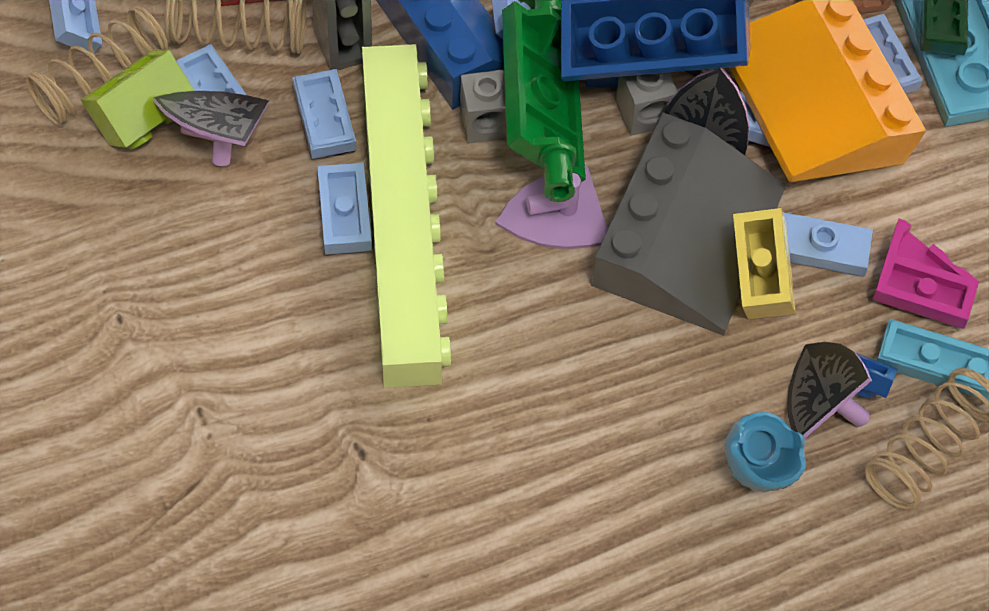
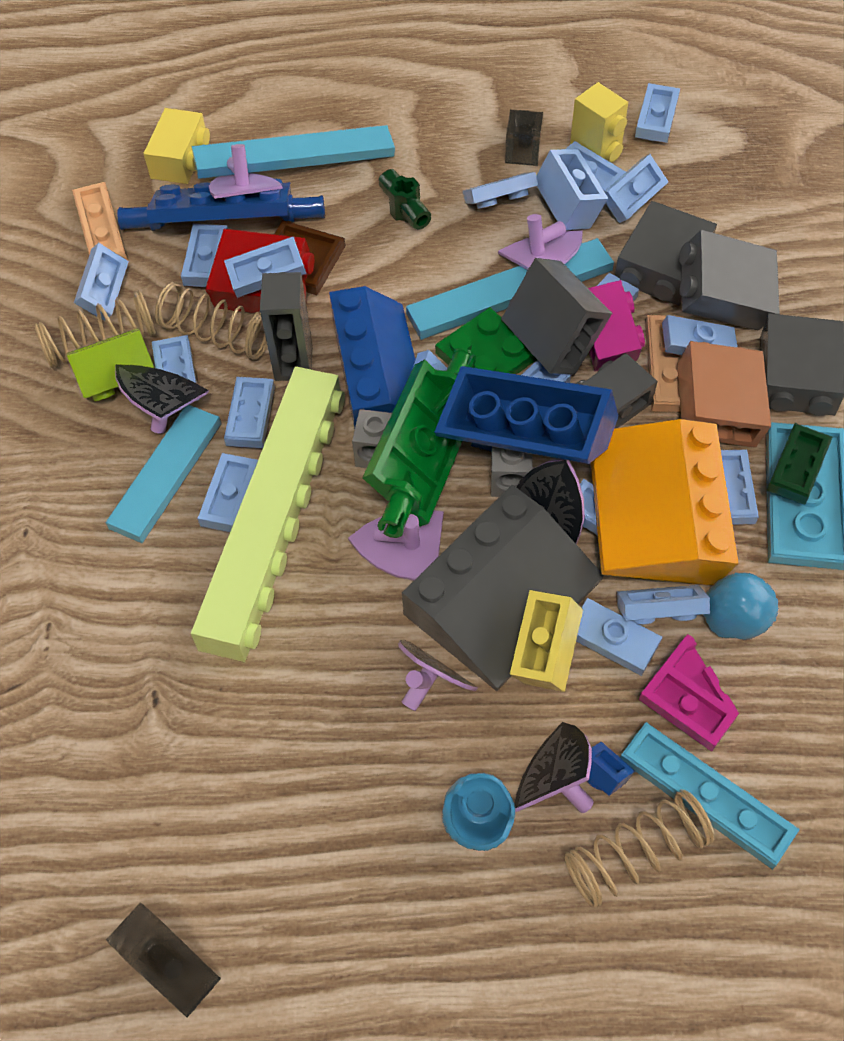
camera: 25 degrees right, 0 degrees up
(254, 209) = (163, 473): none -> medium azure tile
(651, 336) = (422, 680): none -> lavender shield
(870, 191) = (677, 602): none -> light blue plate
(938, 176) = (741, 606): none -> dark azure hair

